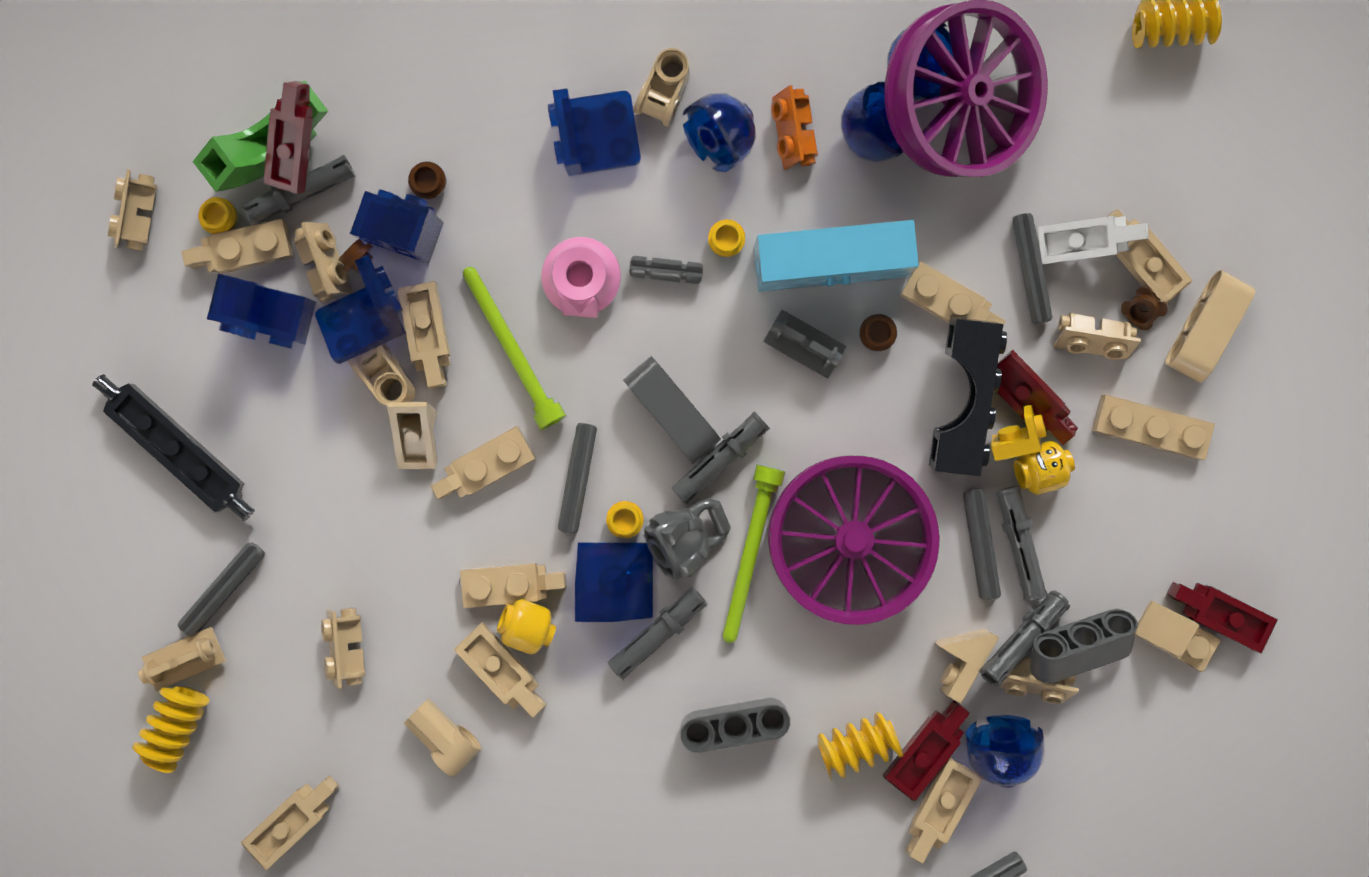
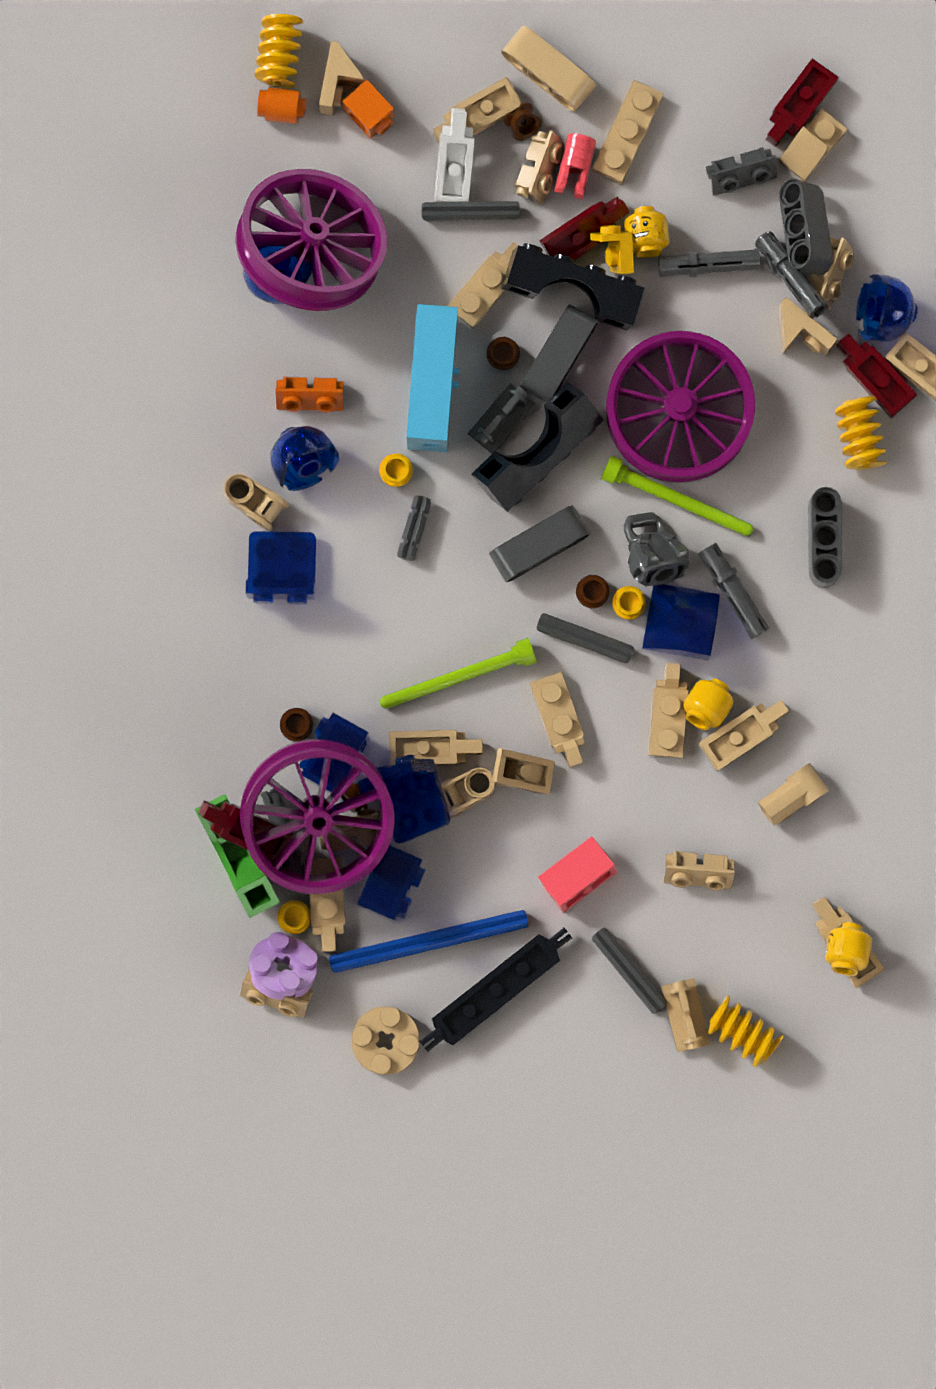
camera: 85 degrees left, 5 degrees down
(80, 332) = (366, 1036): none -> tan plate
(133, 218) = (287, 950): none -> lavender plate
(216, 366) = (428, 941): none -> blue axle
(272, 831) = (848, 949): none -> yellow head
(307, 210) = (316, 817): none -> magenta wheel
(313, 514) = (577, 874): none -> coral hinge
(581, 277) = (407, 603): bright pink piece -> none
(630, 477) = (592, 591): none -> reddish brown plate
(720, 458) = (581, 497): dark grey pin -> none
(811, 417) = (567, 423): none -> black arch
(867, 125) = (322, 329): clear blue cylinder -> none
(889, 394) = (559, 353): none -> dark grey beam
(982, 544) = (704, 297): dark grey axle -> none
(1110, 375) = (576, 160): none -> coral hinge
(1113, 36) = (281, 105): none -> orange brick
(1126, 134) = (369, 110): none -> orange brick
(1138, 576) = (756, 168): none -> dark grey hinge
(1160, 92) = (338, 71): none -> tan slope

